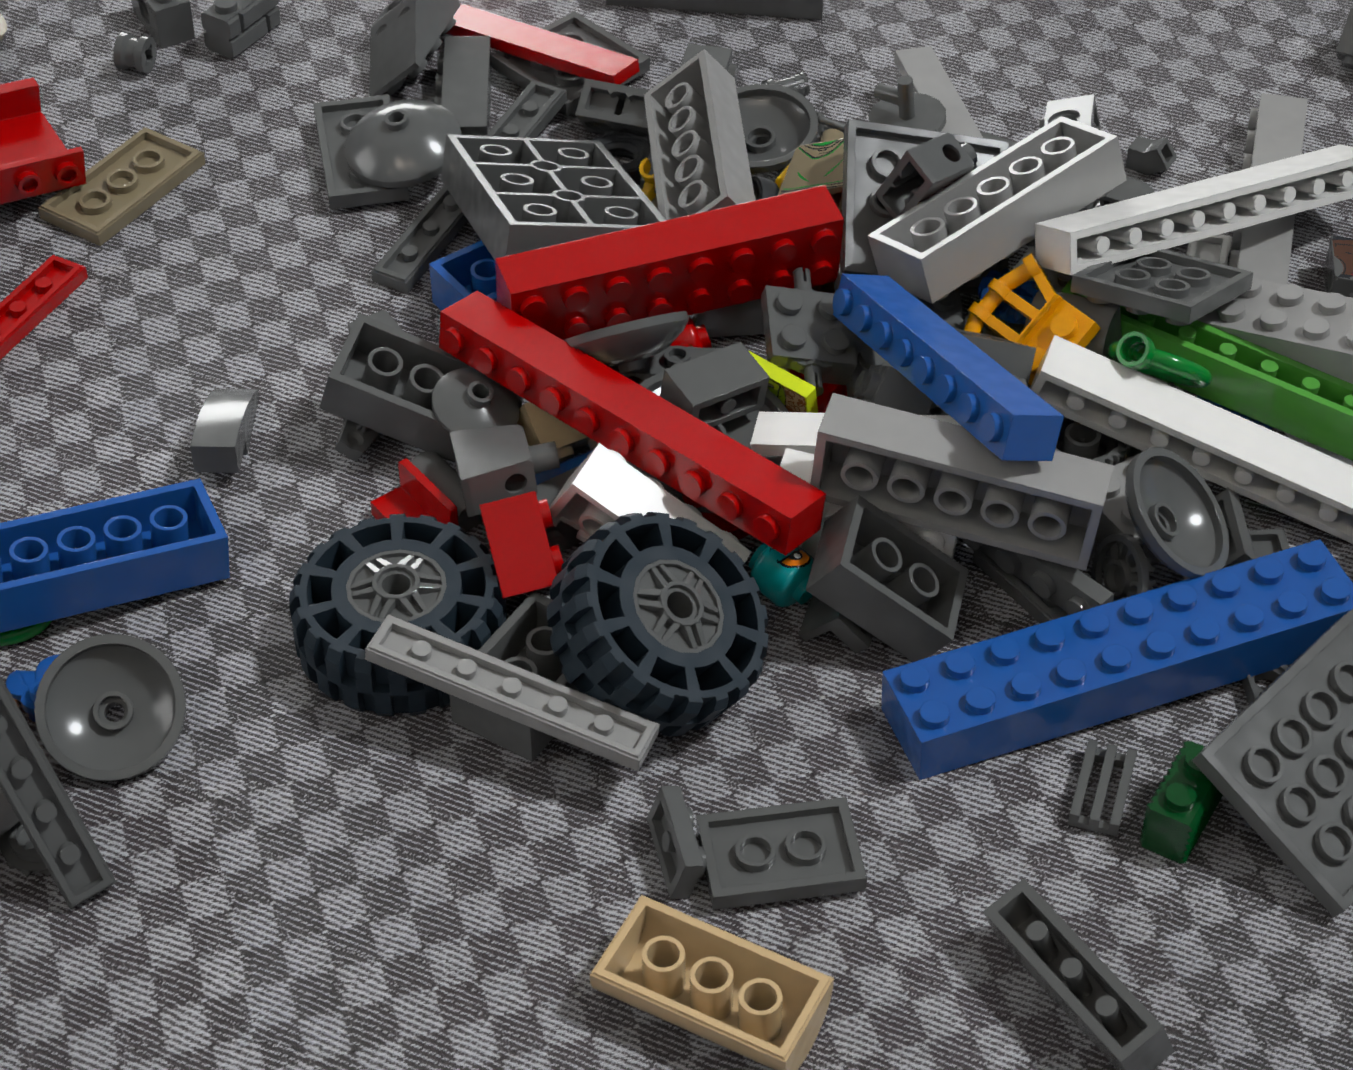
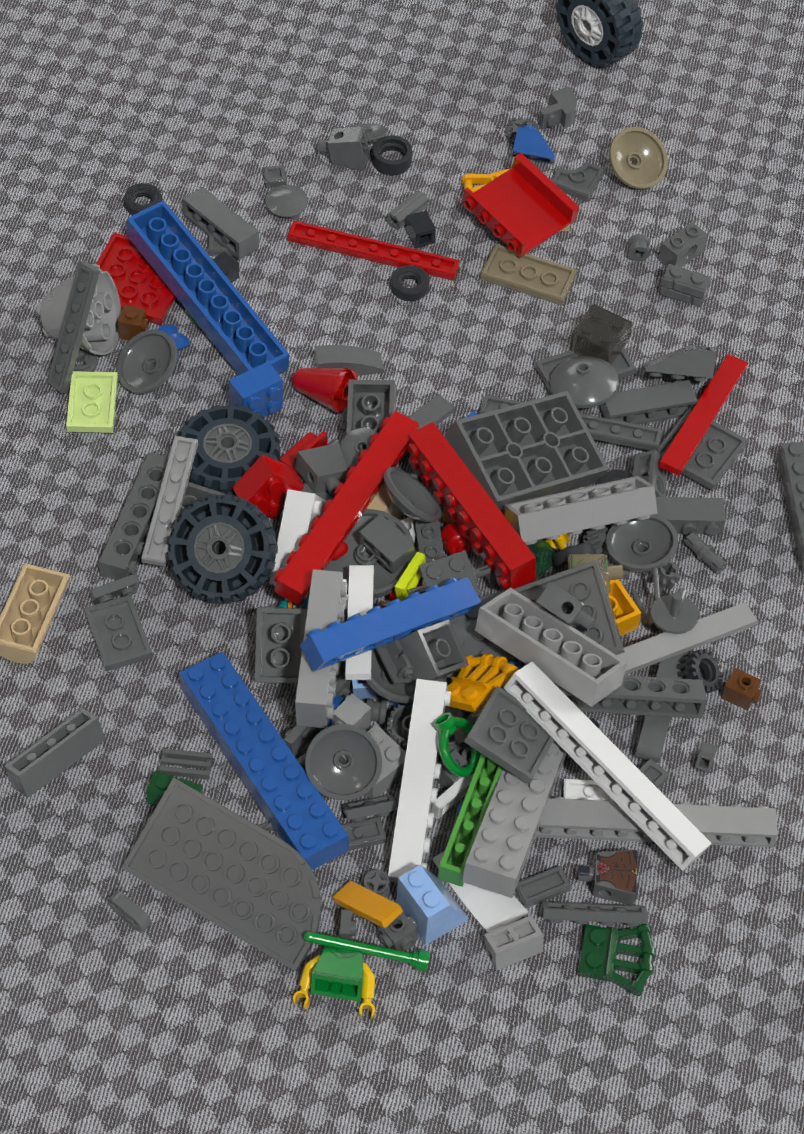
camera: 75 degrees right, 10 degrees up
(78, 341) = (409, 272): none -> black tyre
(169, 826) = (92, 402): none -> yellowish green plate
(267, 543) = (258, 389): none -> blue brick
(282, 453) = (325, 385): none -> red cone
(318, 103) = (600, 334): none -> clear smoke brick
(501, 783) = (141, 504): none -> dark grey brick
(1005, 120) = (707, 664): none -> black tyre
(1029, 96) = (742, 689): none -> reddish brown brick

